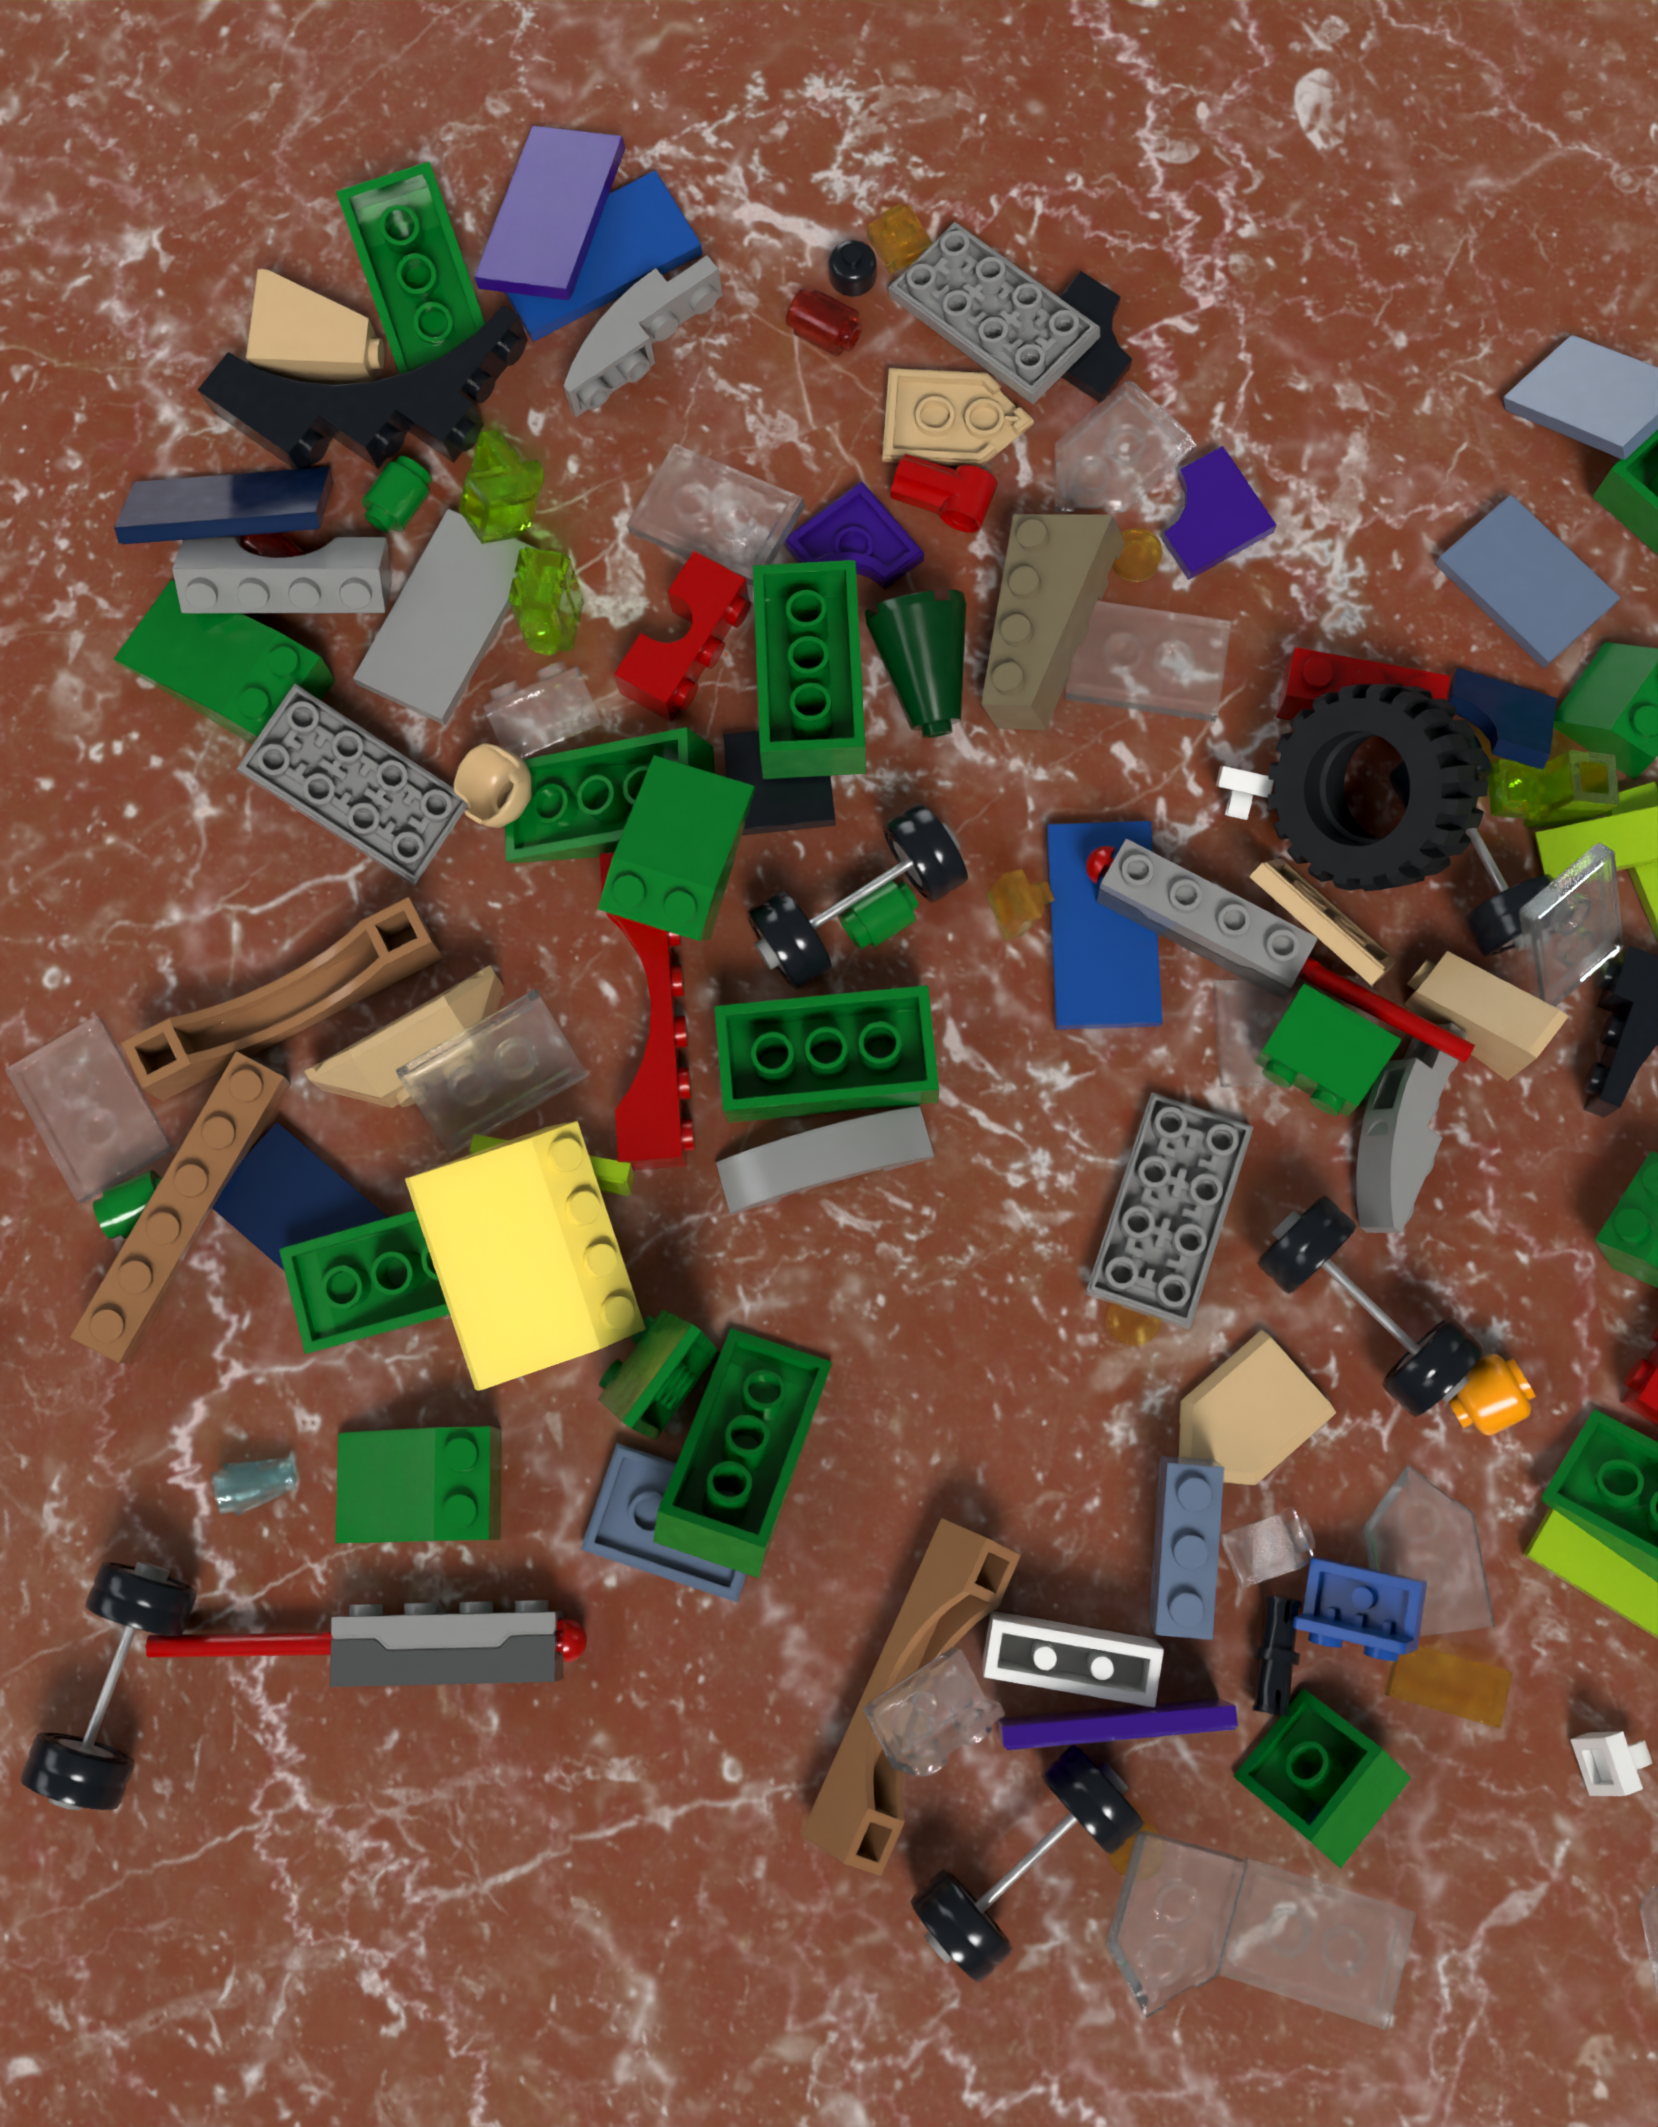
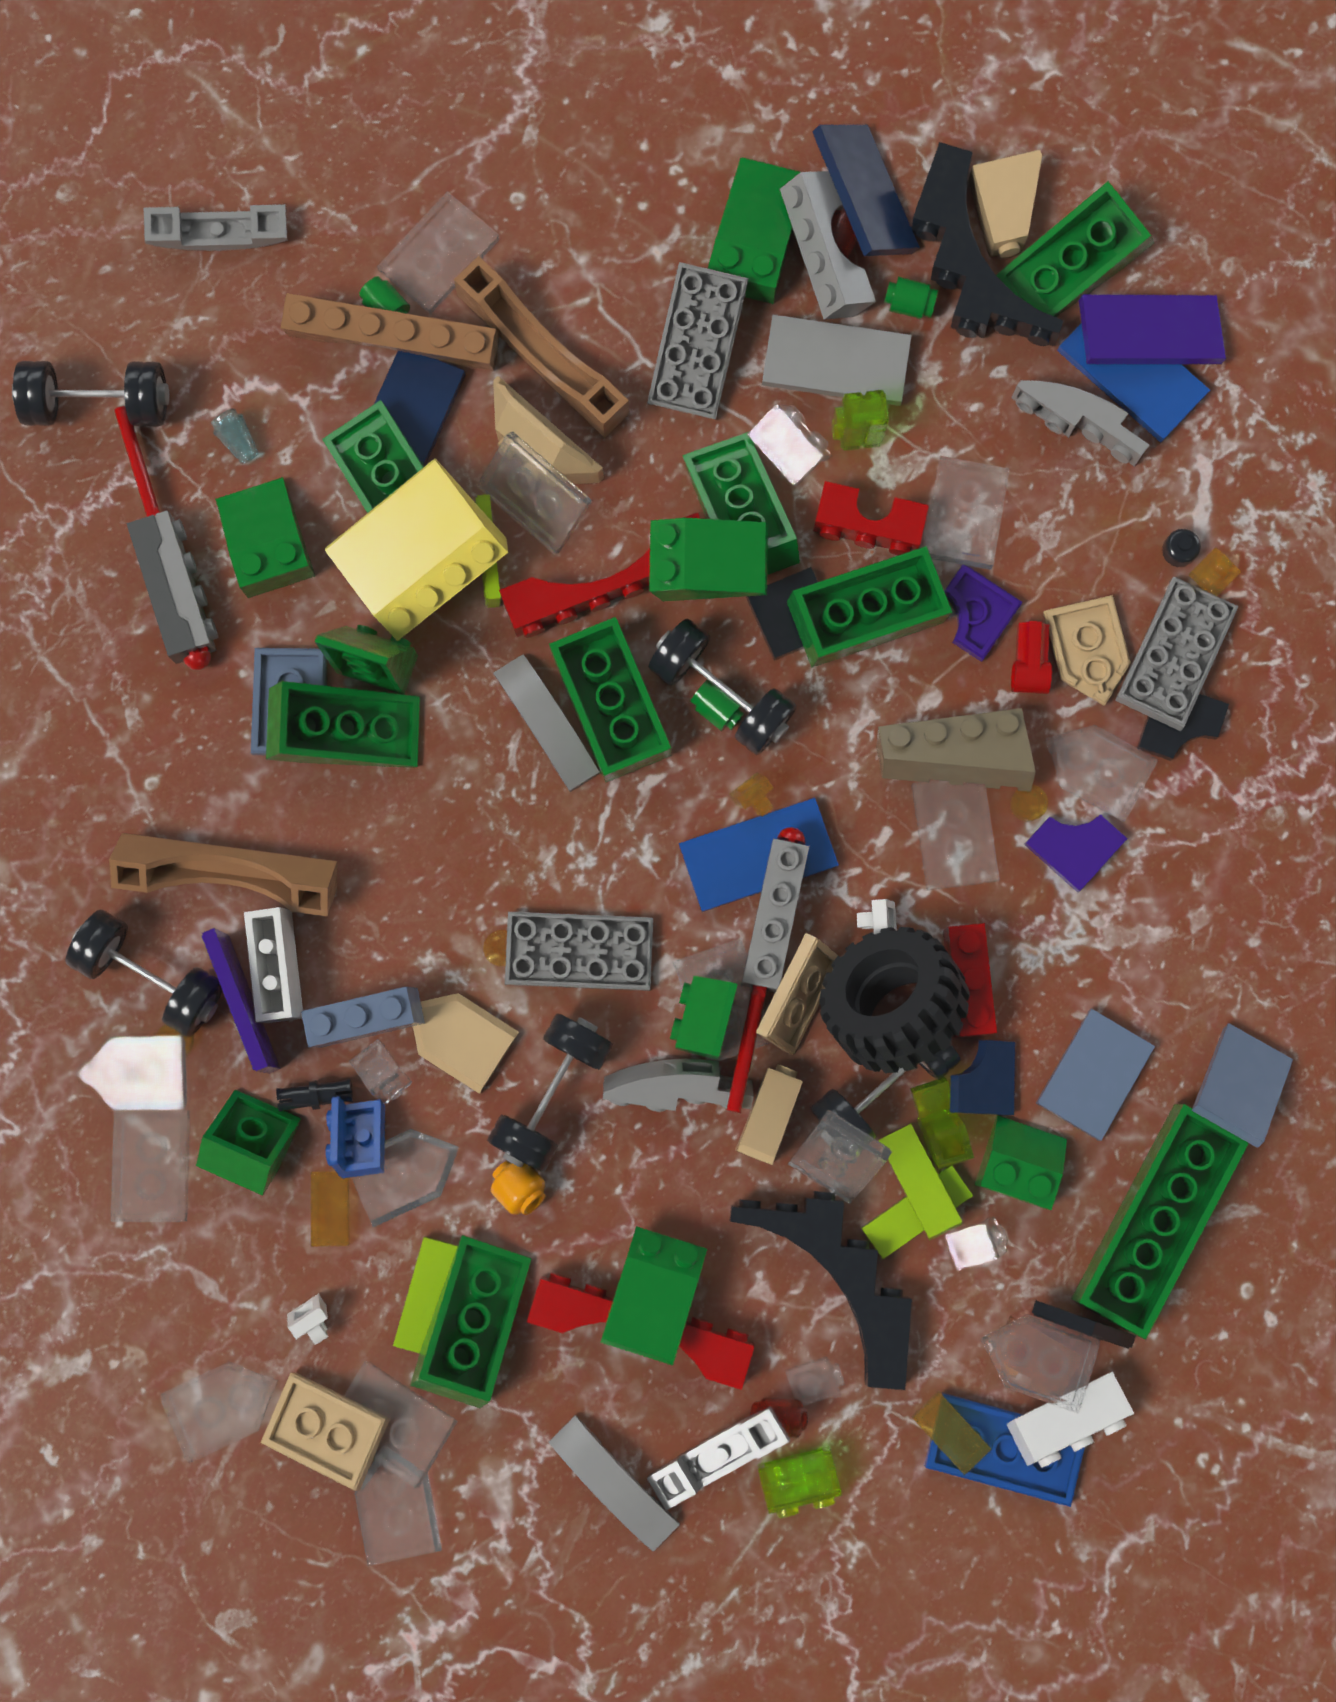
camera: 65 degrees right, 5 degrees up
(493, 785) = (725, 430): tan hair -> none
(500, 491) = (930, 369): clear neon green brick -> none
(824, 321) = (1131, 540): clear red brick -> none
(923, 656) = (902, 681): dark green cone -> none
(932, 1714) = (214, 889): clear bracket -> none

